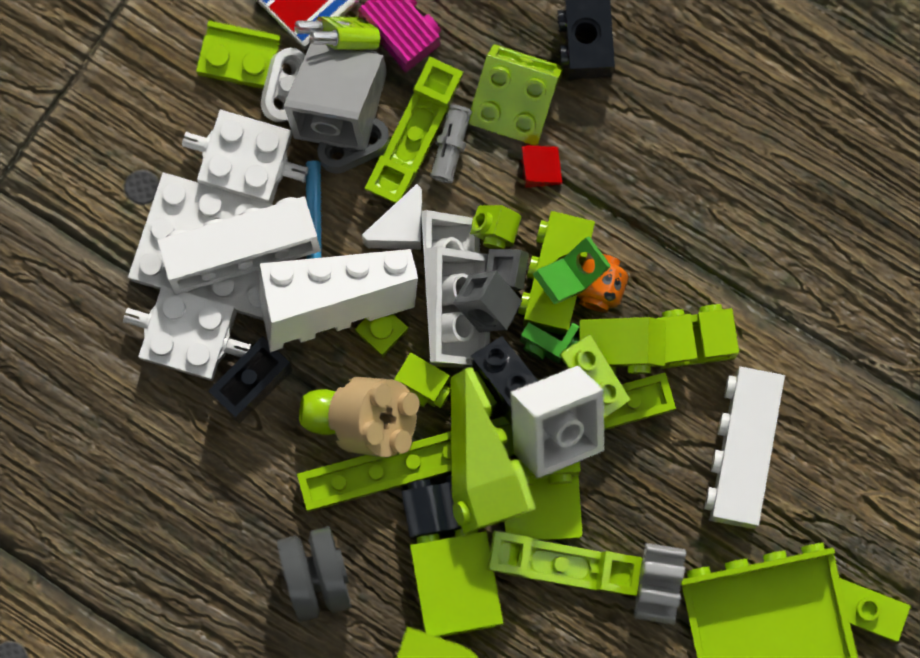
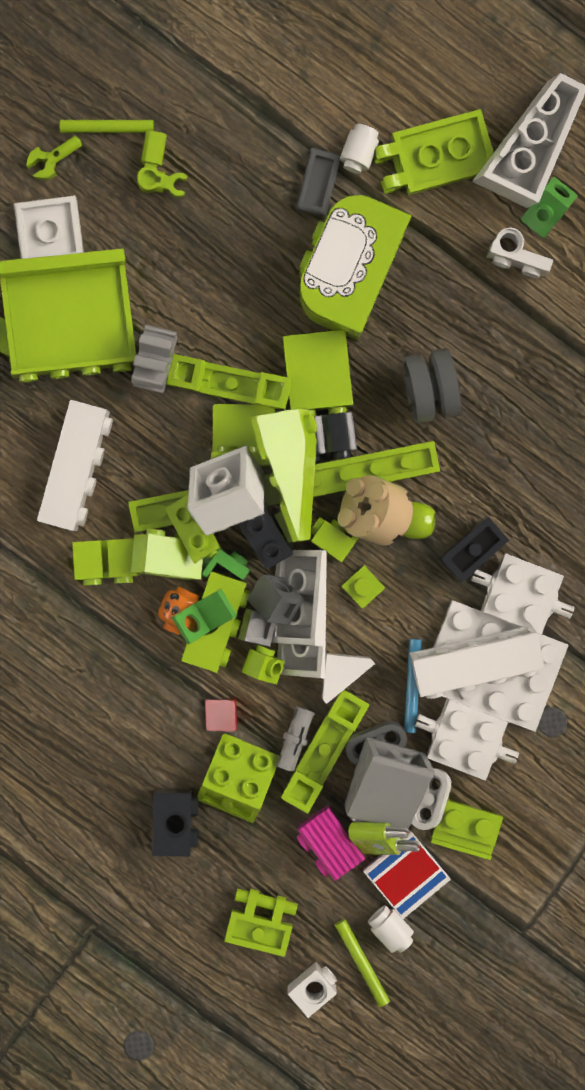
camera: 170 degrees left, 10 degrees up
(333, 292) = (402, 615): white wedge -> none

